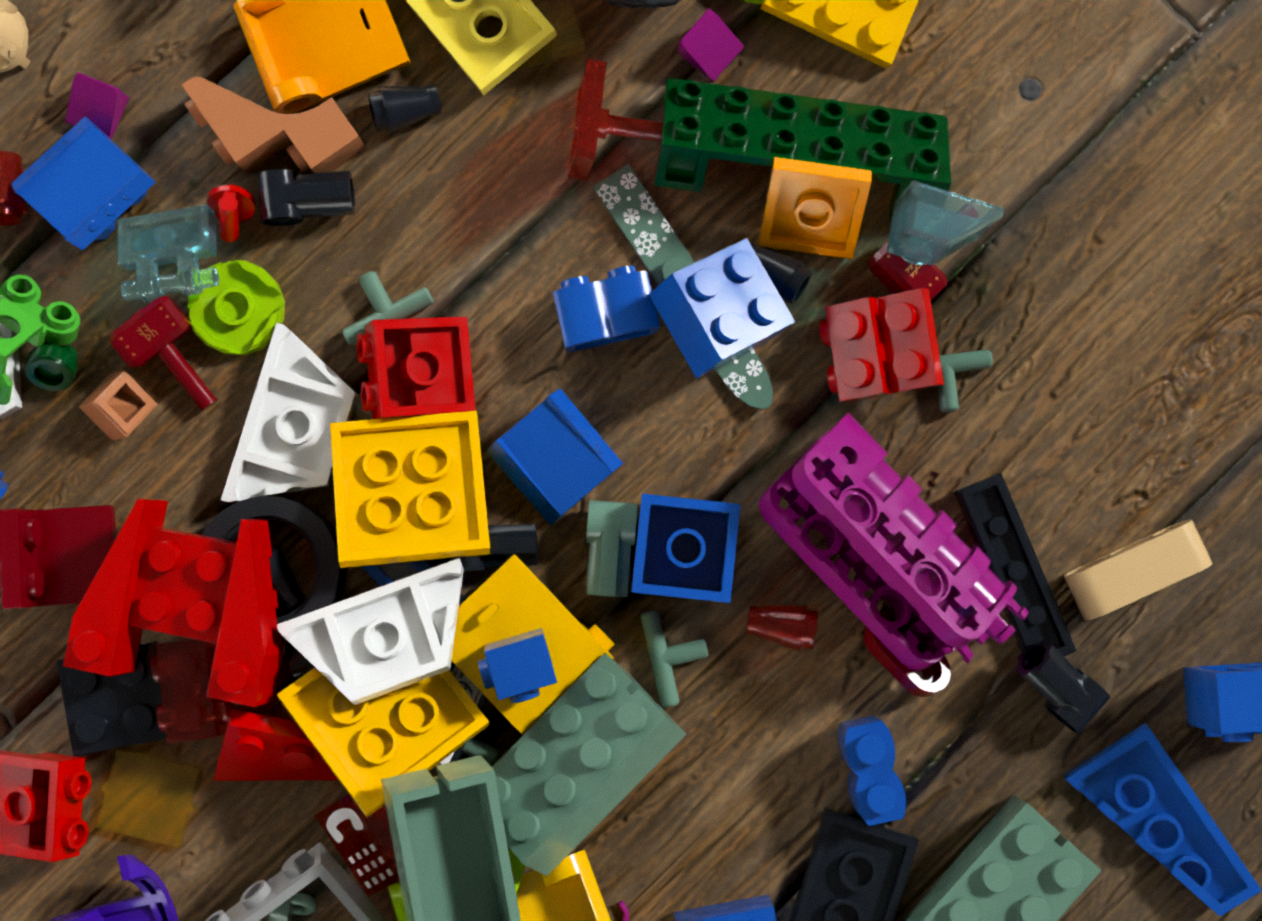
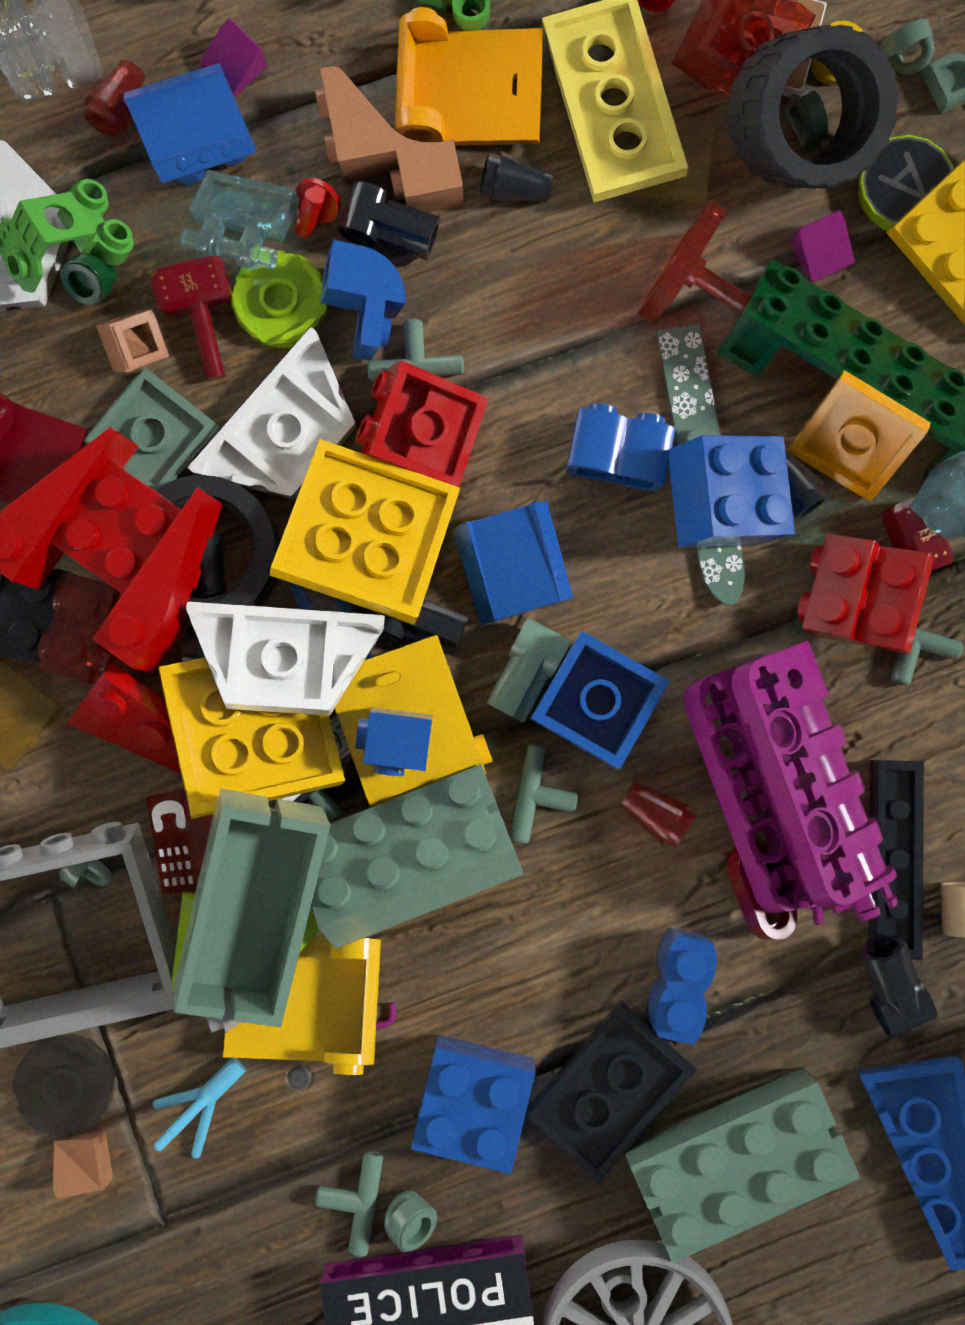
camera: 25 degrees right, 0 degrees up
(177, 470) = (162, 425): none -> sand green tile
(312, 261) = (366, 283): none -> blue brick

